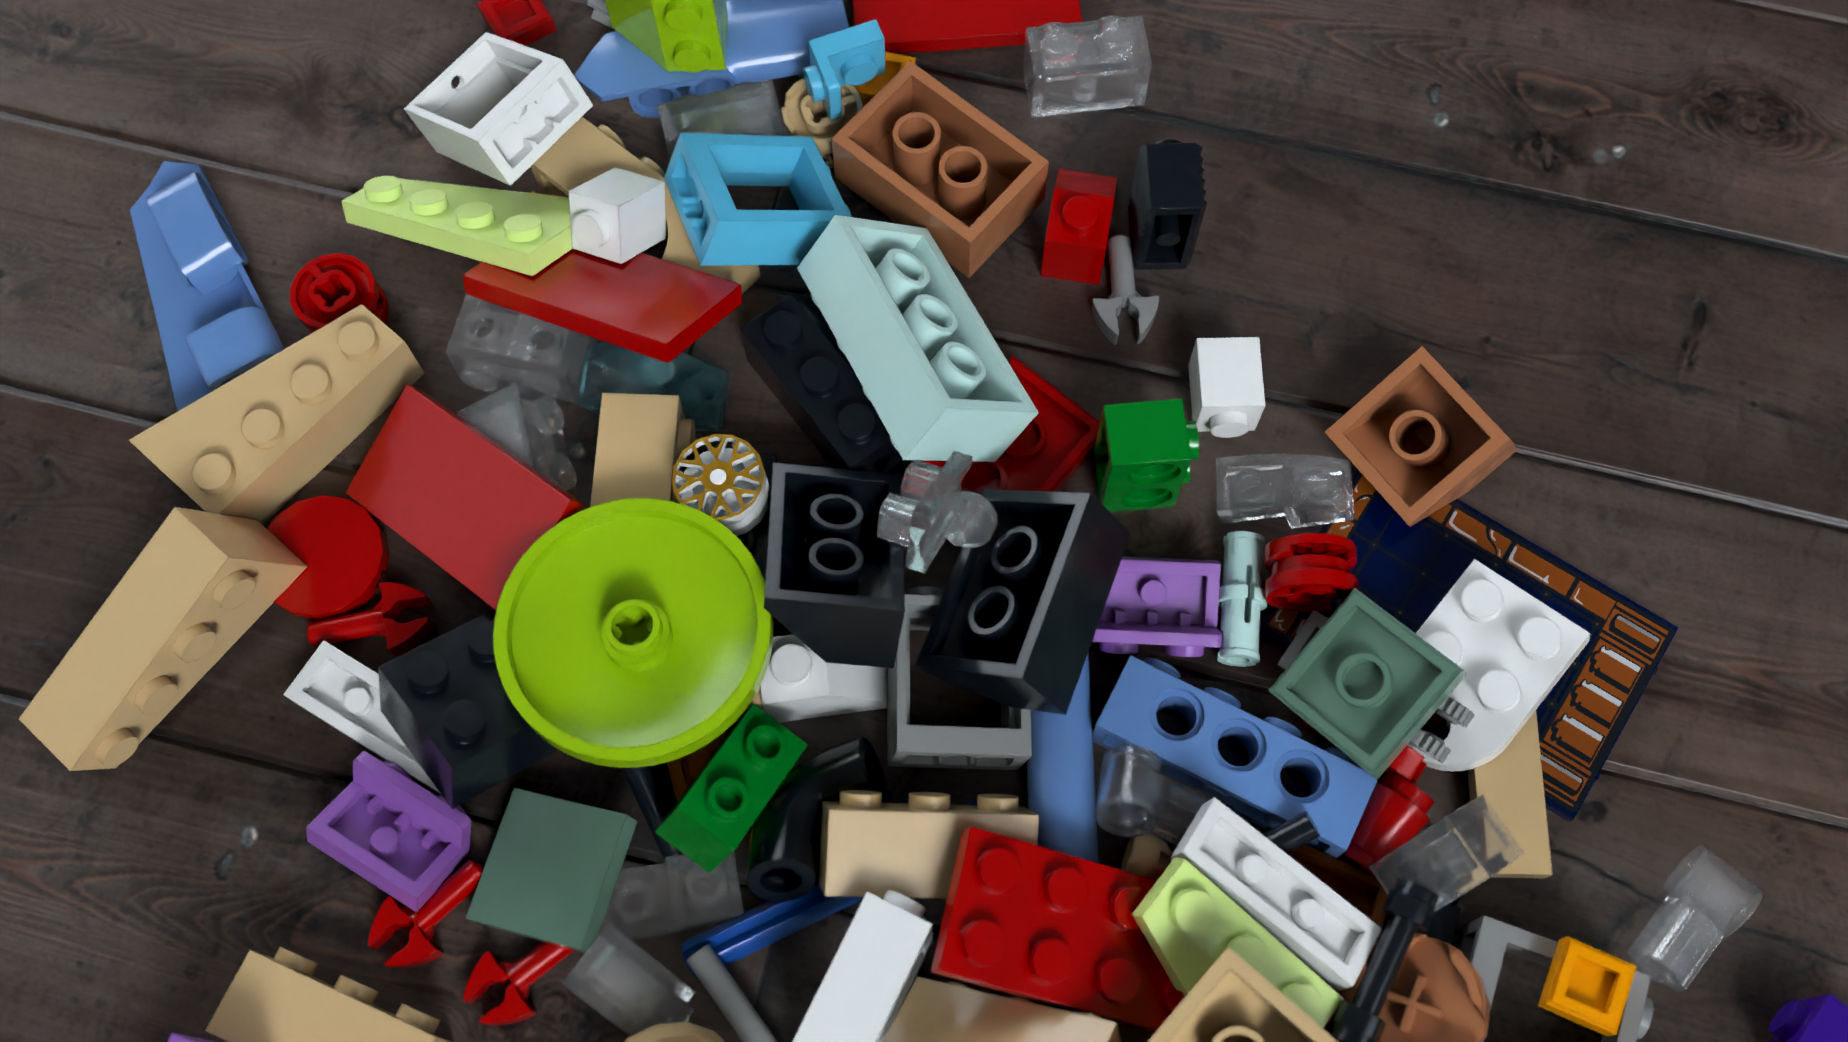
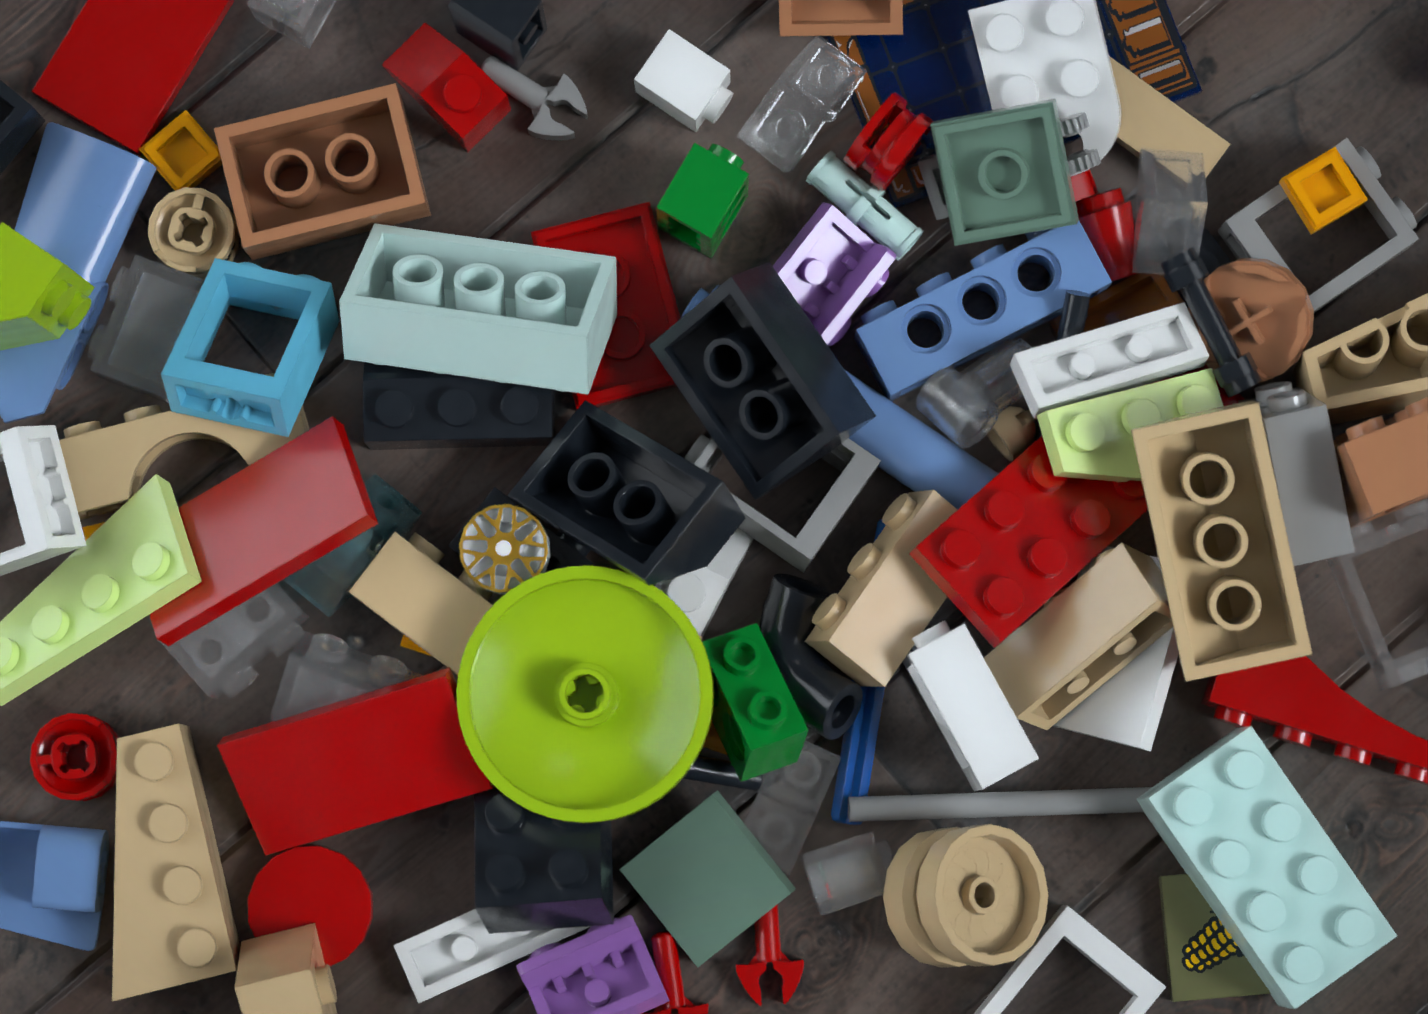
camera: 55 degrees left, 15 degrees up
(379, 621) = (397, 898): red bar -> none
(617, 215) = (186, 473): white brick -> none
(841, 60) = (171, 177): medium azure bracket -> none
(934, 510) = (670, 383): clear hips -> none
(1701, 907) = (1326, 49): clear piece -> none

